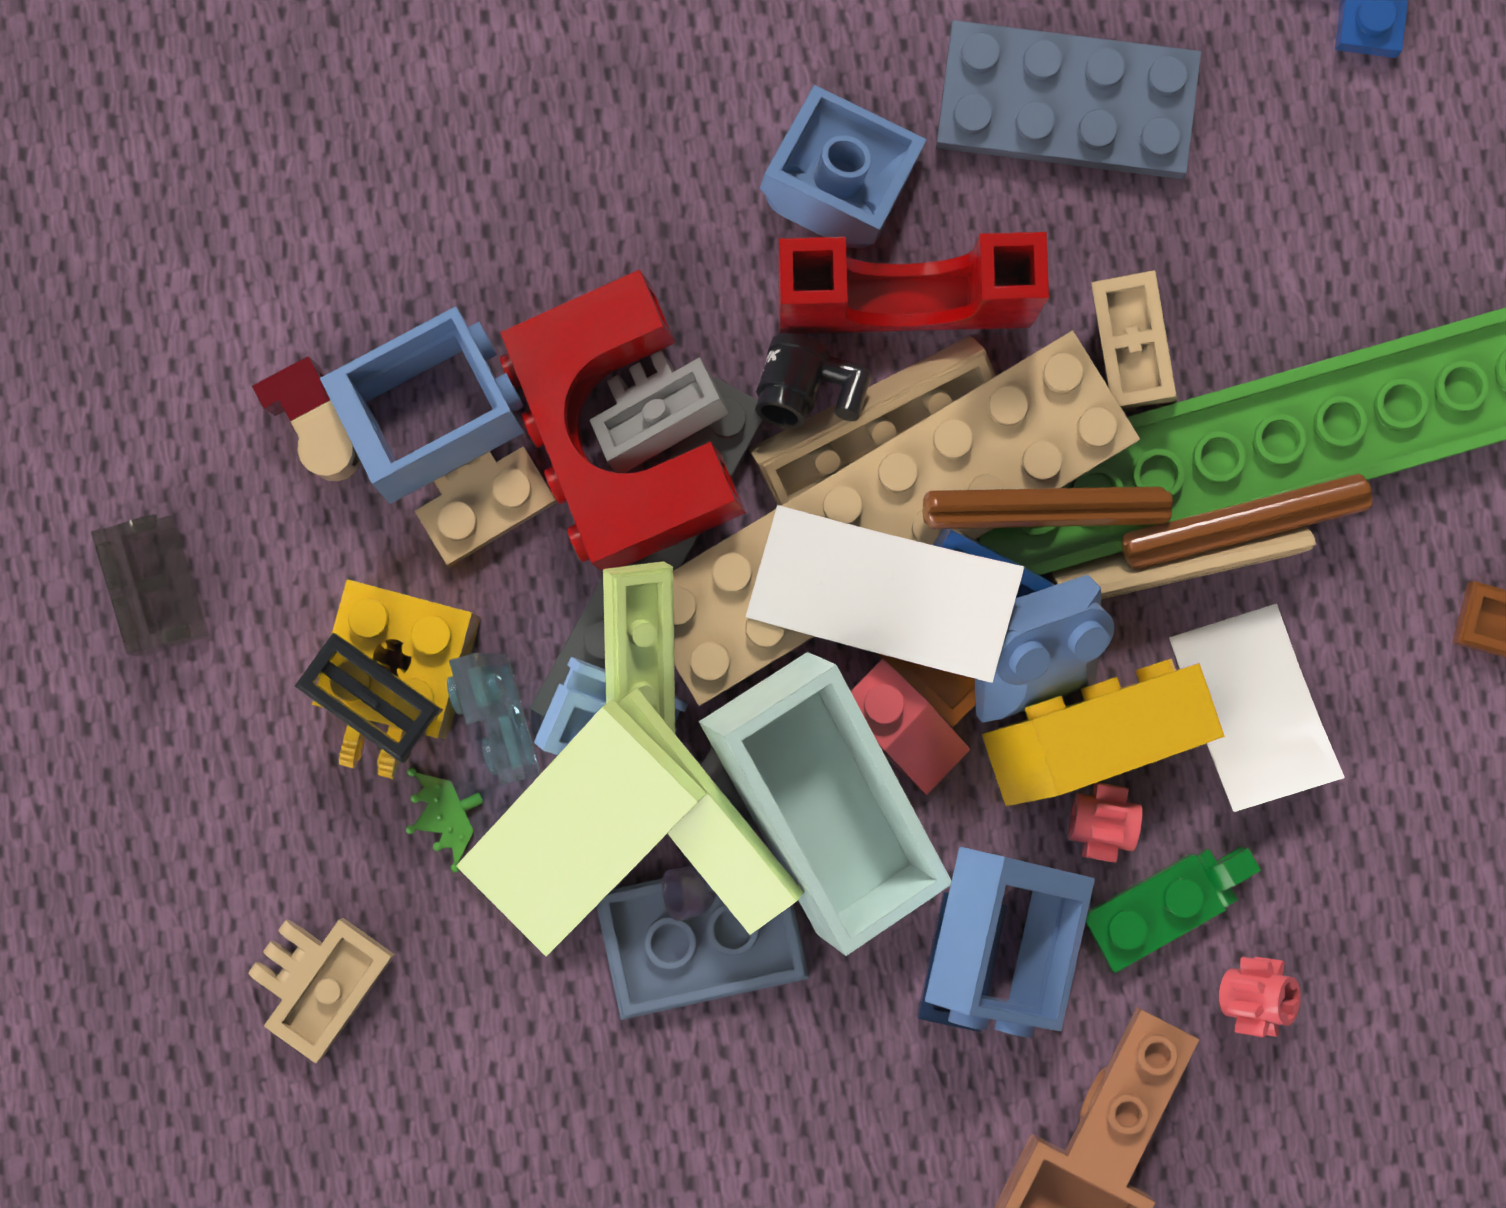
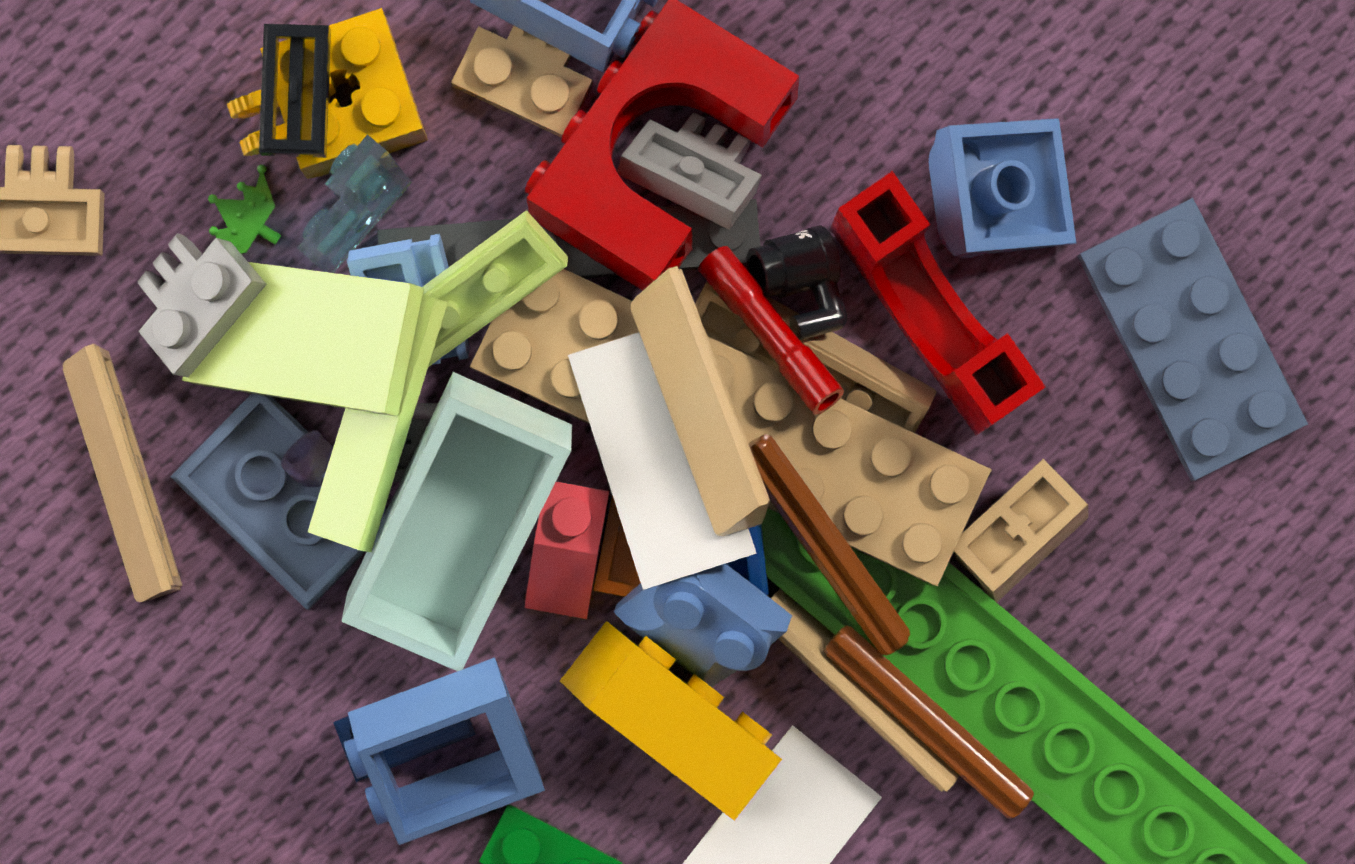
camera: 50 degrees right, 0 degrees up
(488, 900) = (196, 300): none -> hinge
(591, 1059) = (121, 474): none -> tan slope
(866, 531) = (700, 404): none -> tan slope
(876, 430) = (794, 359): none -> red piece
(1105, 822) = (598, 769): coral gear -> none

